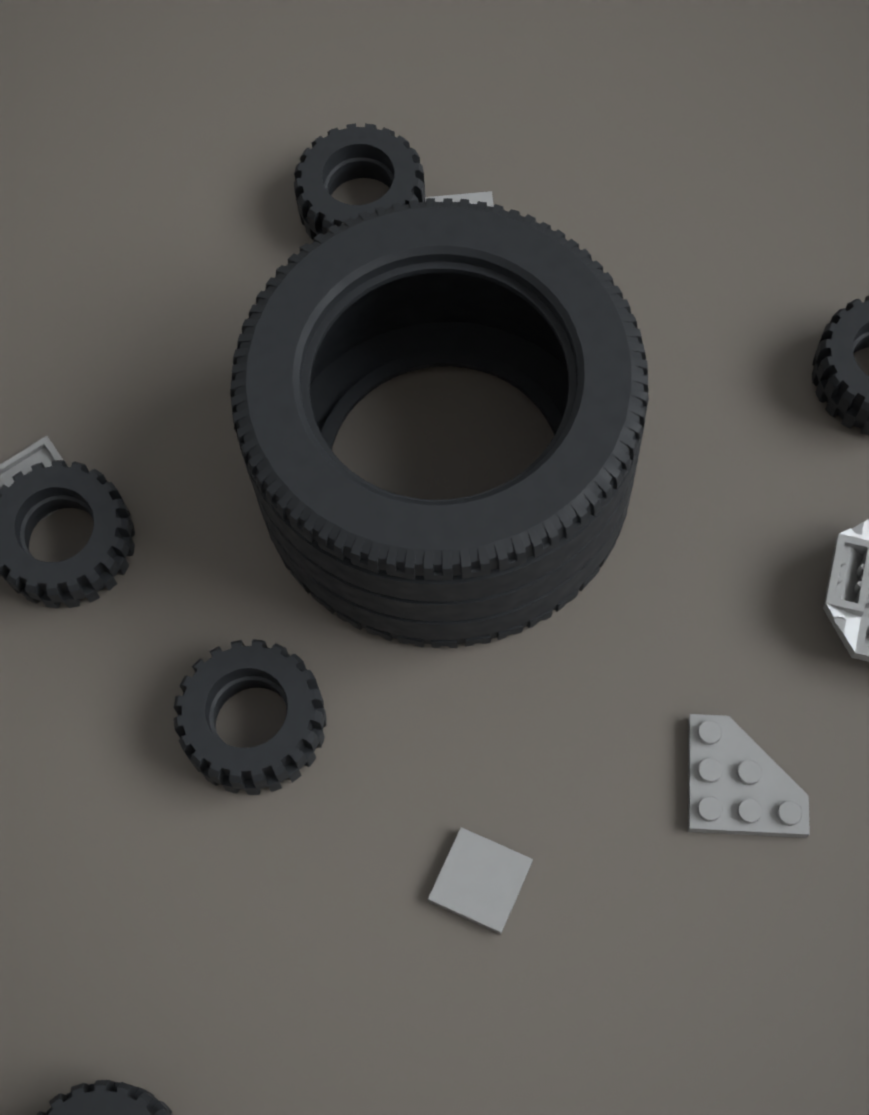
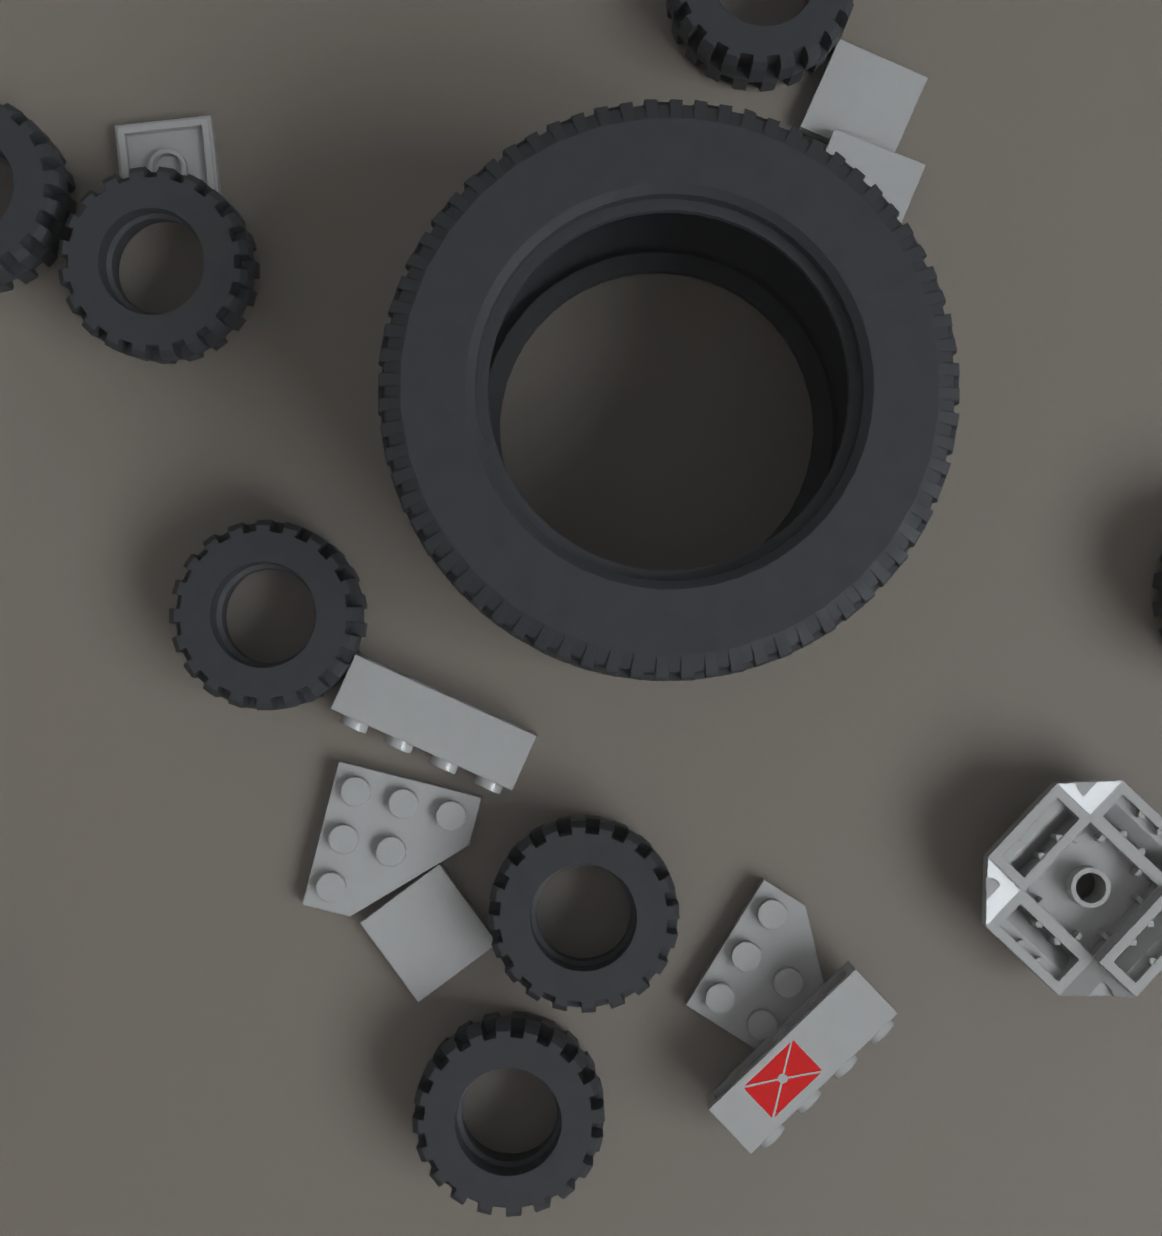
camera: 25 degrees right, 20 degrees up
(403, 731) = (433, 722): none -> light grey brick
(410, 831) = (382, 835): none -> light grey plate
(590, 747) = (583, 980): none -> black tyre
(648, 925) = (494, 1176): none -> black tyre
(789, 811) = (801, 1058): none -> light grey brick

